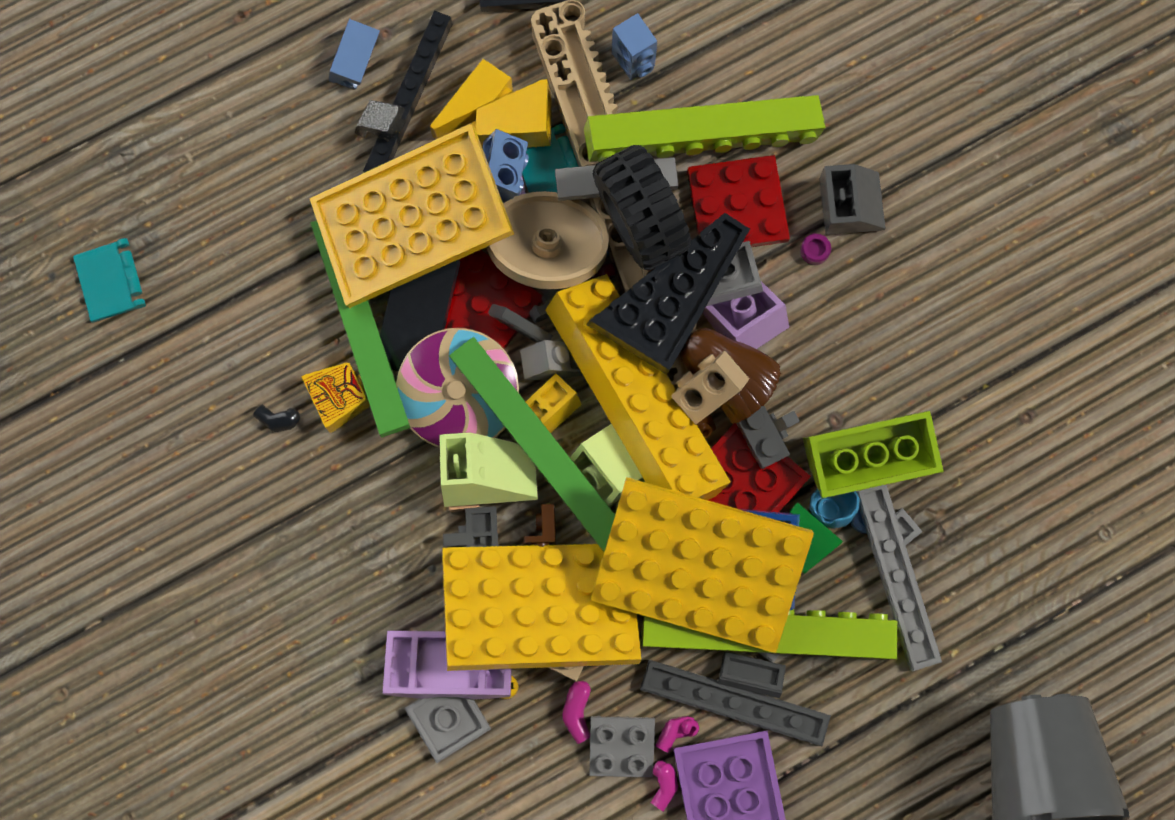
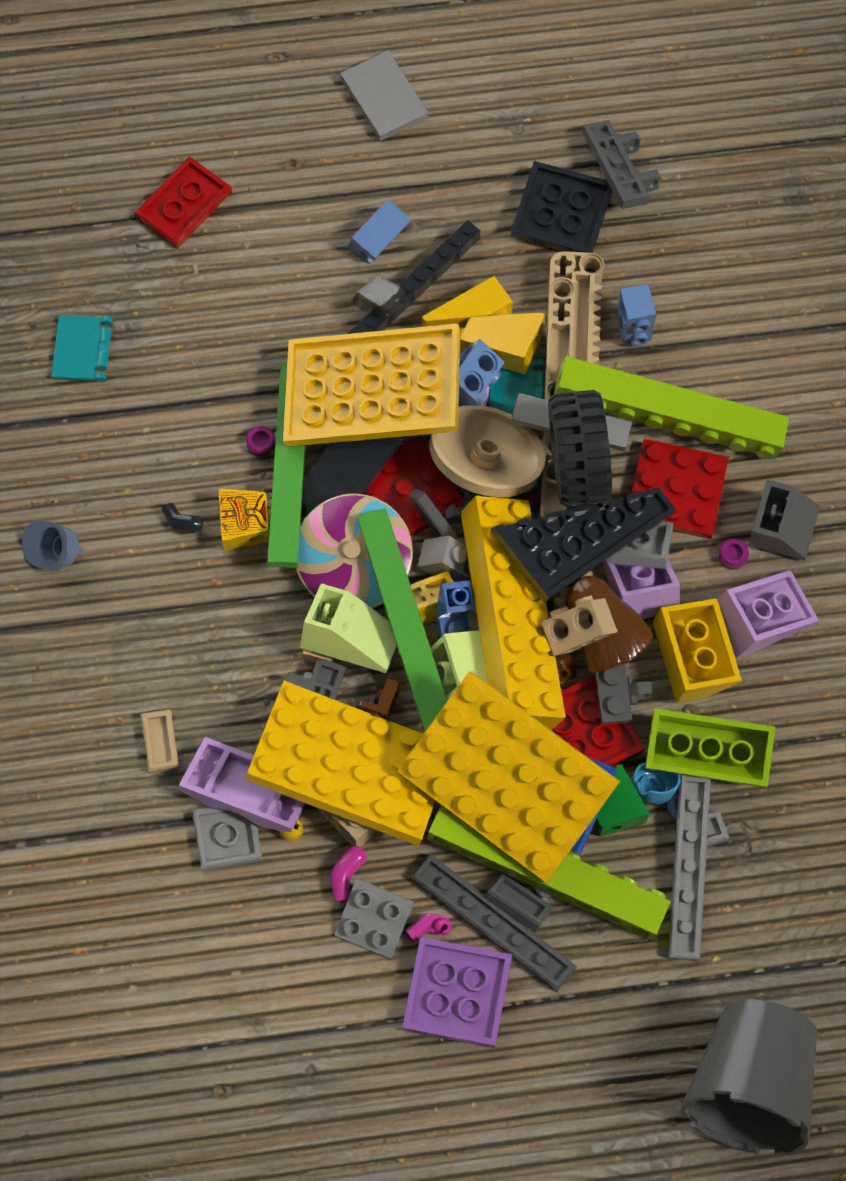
camera: 20 degrees right, 10 degrees down
(149, 94) = (183, 202): none -> red tile
(158, 496) = (50, 545): none -> sand blue piece
(322, 308) = (260, 441): none -> magenta tile
(345, 650) = (160, 741): none -> tan tile
(576, 412) = (453, 604): none -> blue slope
(667, 782) = (402, 968): dark pink arm -> none
(821, 360) = (696, 649): none -> yellow slope
(867, 298) = (764, 612): none -> lavender slope

